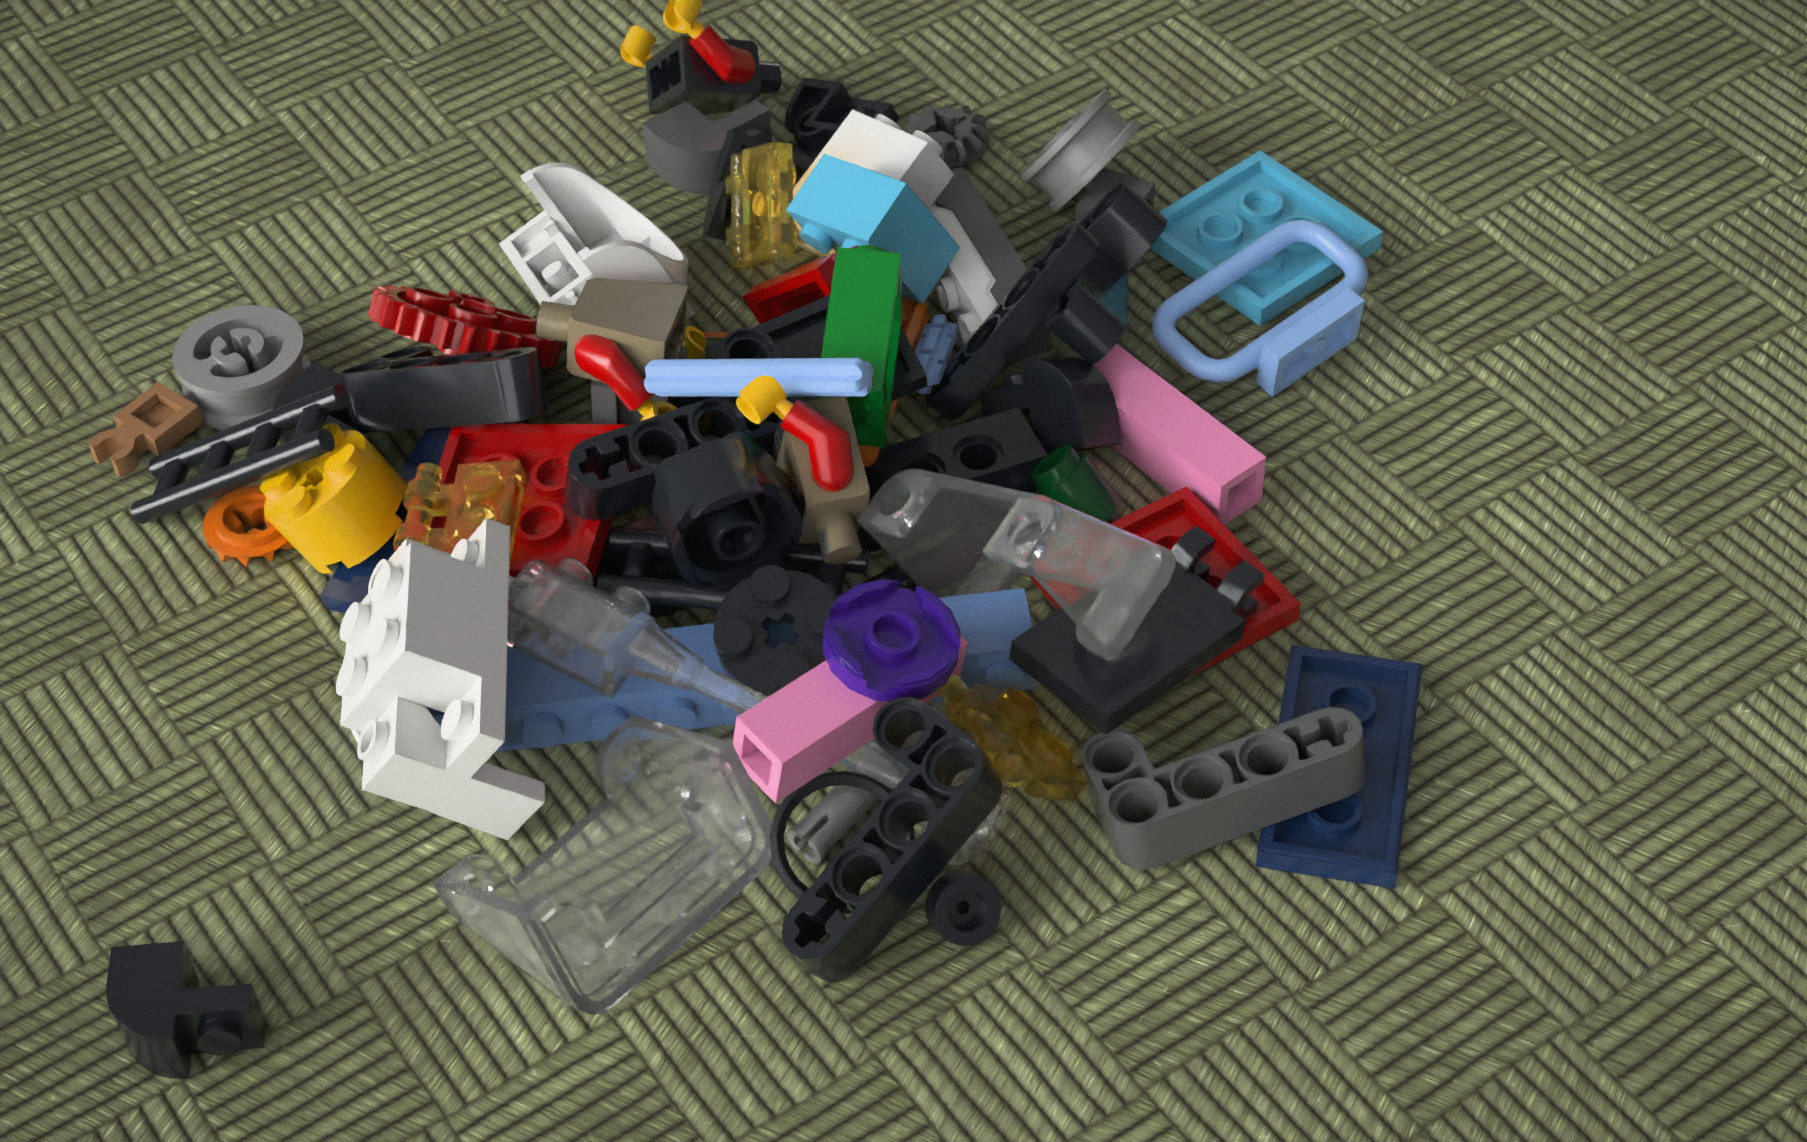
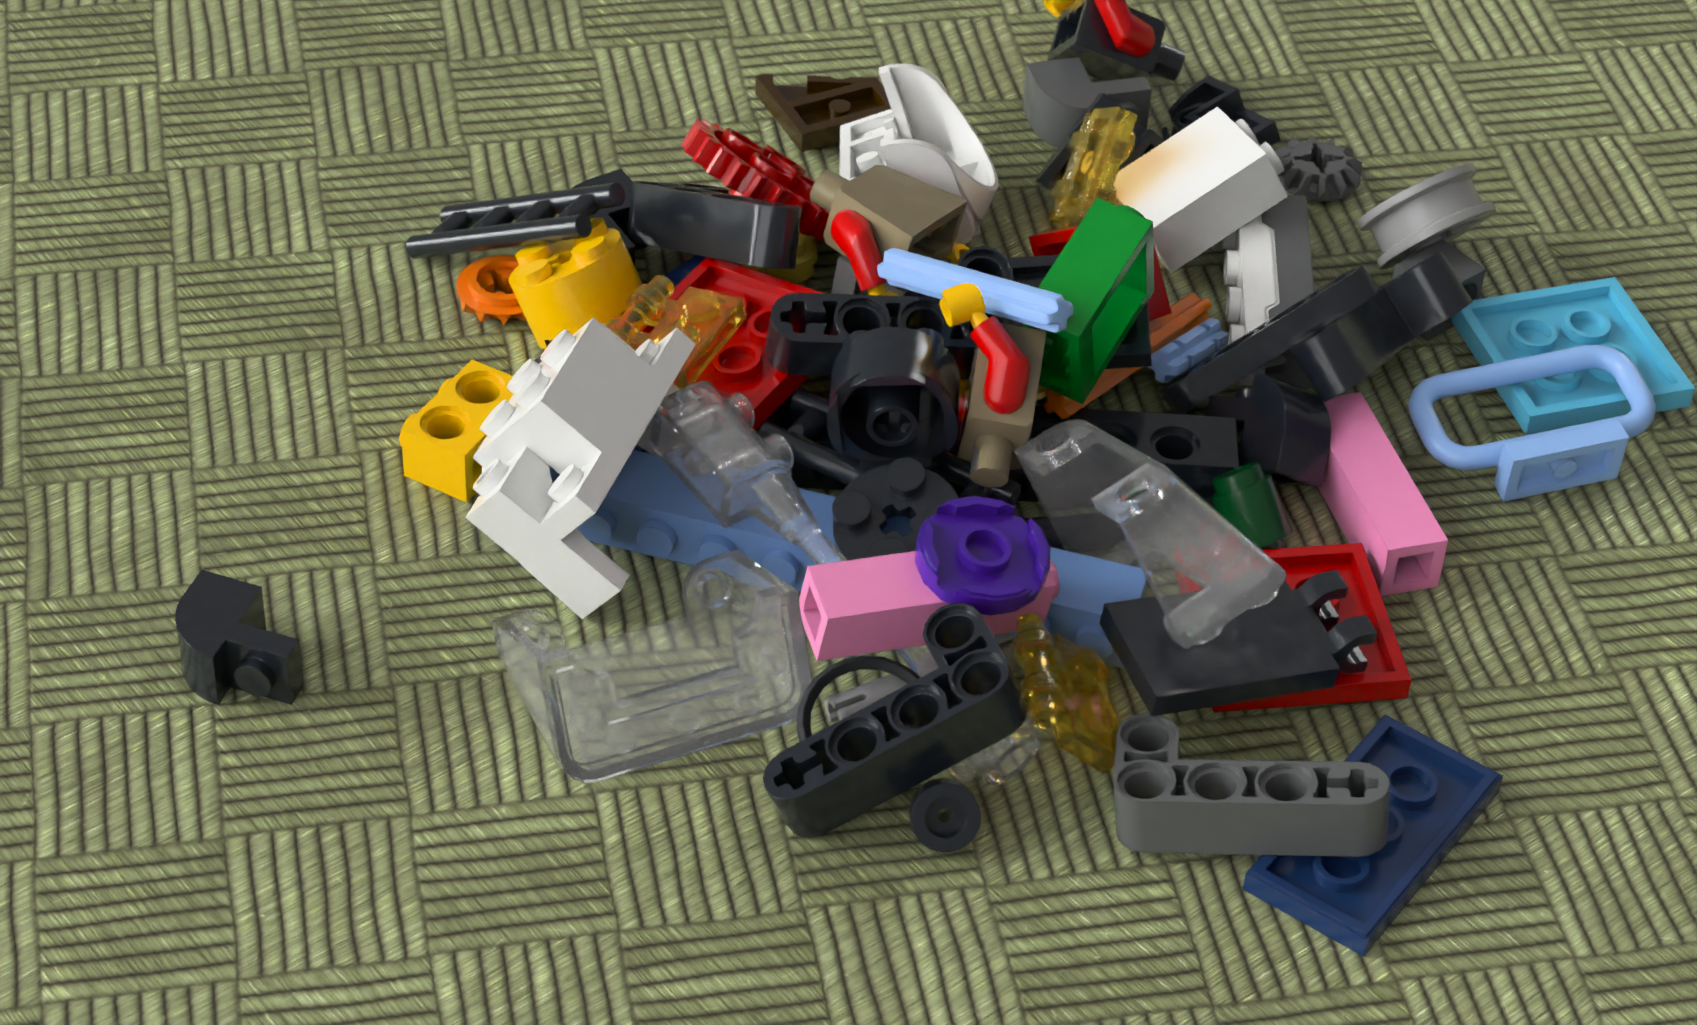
camera: 20 degrees right, 5 degrees down
(150, 423) = (456, 177): medium nougat plate -> none
(238, 362) = (559, 146): light grey wheel -> none
(292, 689) = (447, 433): none -> yellow brick
(468, 228) = (815, 112): none -> dark brown wing
(861, 207) = (1189, 213): medium azure brick -> none

